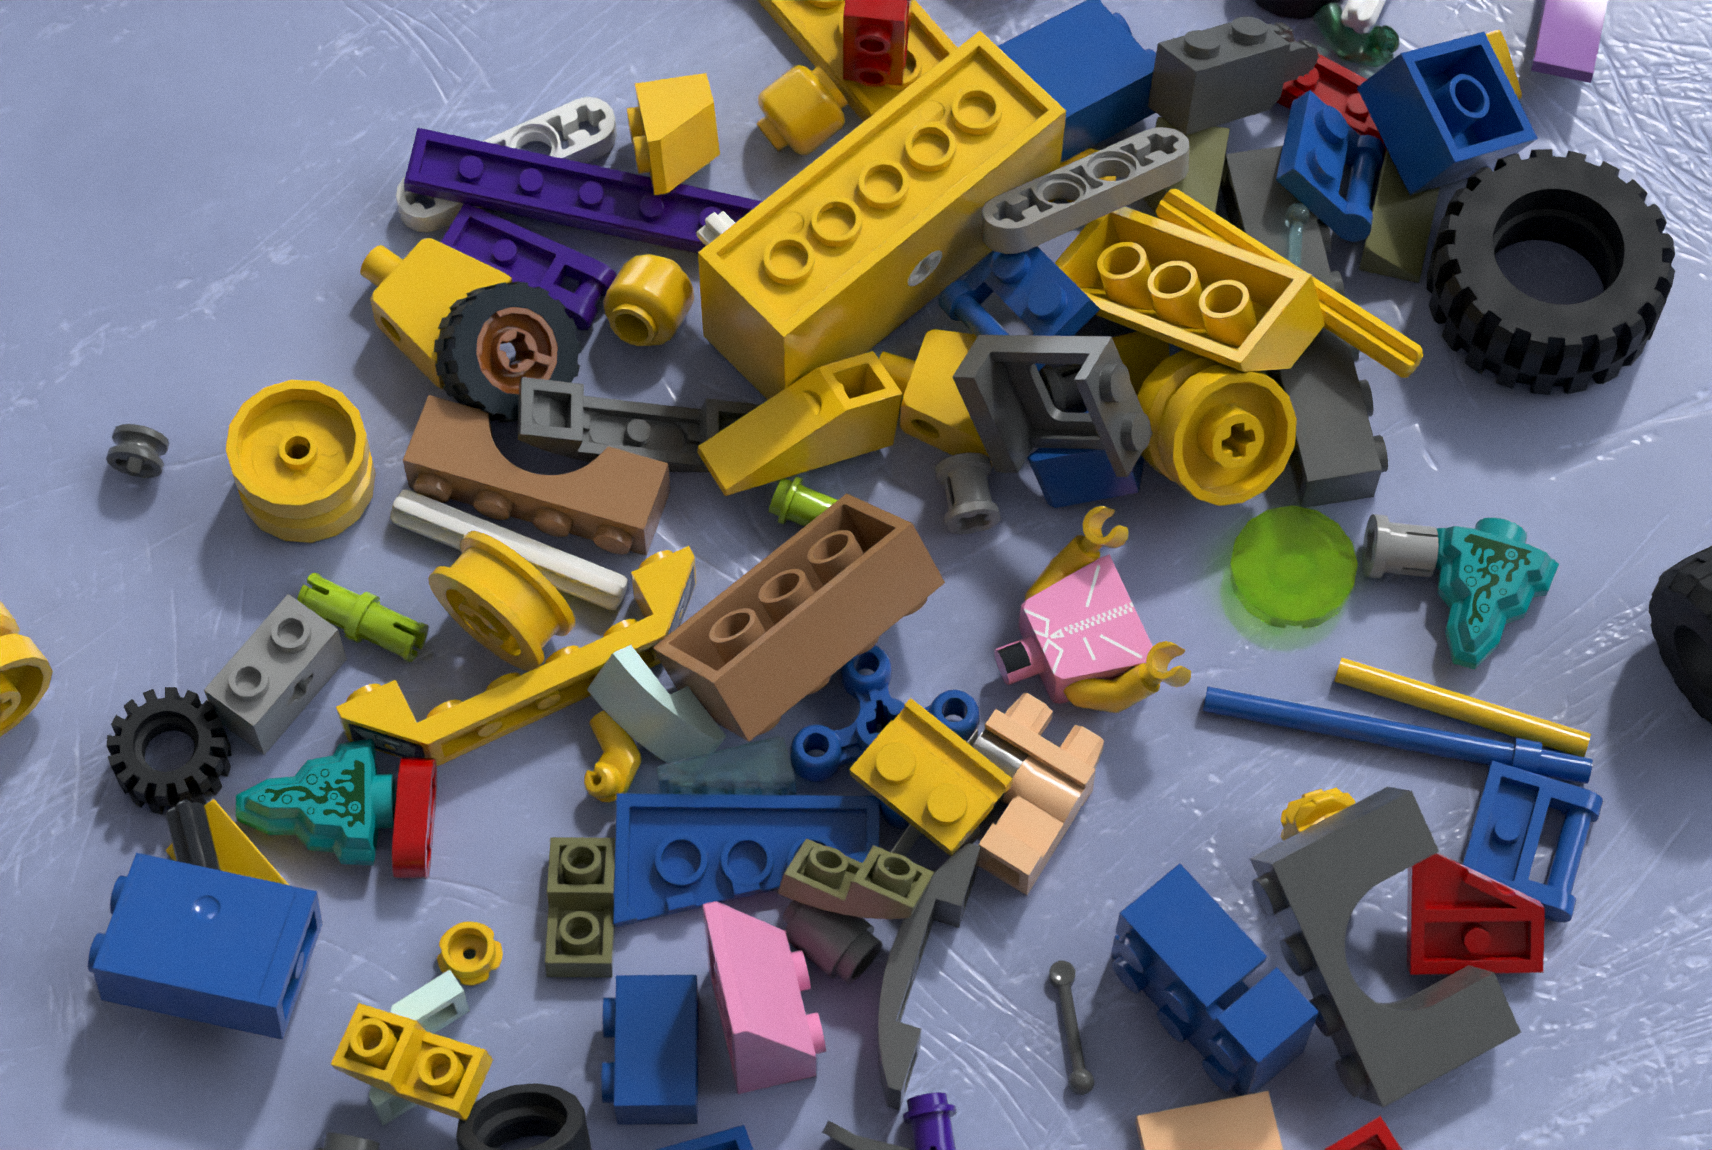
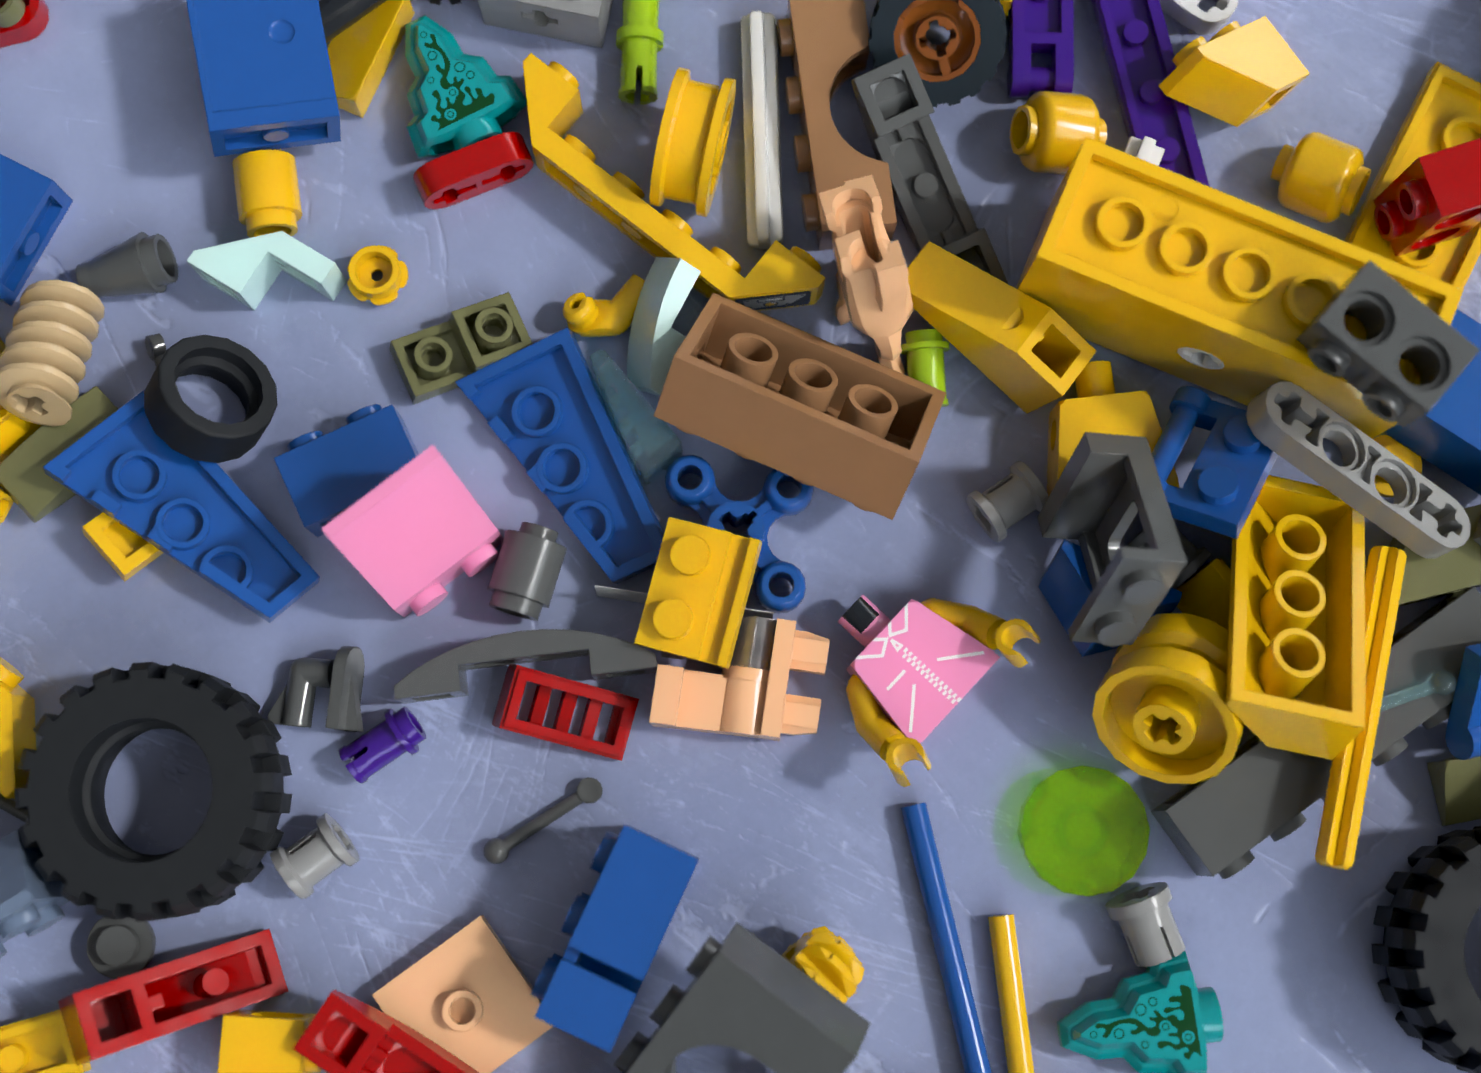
camera: 60 degrees right, 15 degrees up
(326, 1009) = (267, 192): none -> yellow brick
(411, 1062) = (231, 269): yellow slope -> none
(708, 501) = (869, 267): none -> light nougat animal
(878, 888) = (564, 576): slope -> none
(950, 994) = (512, 694): none -> red slope
(995, 91) = (1395, 329): none -> dark grey brick

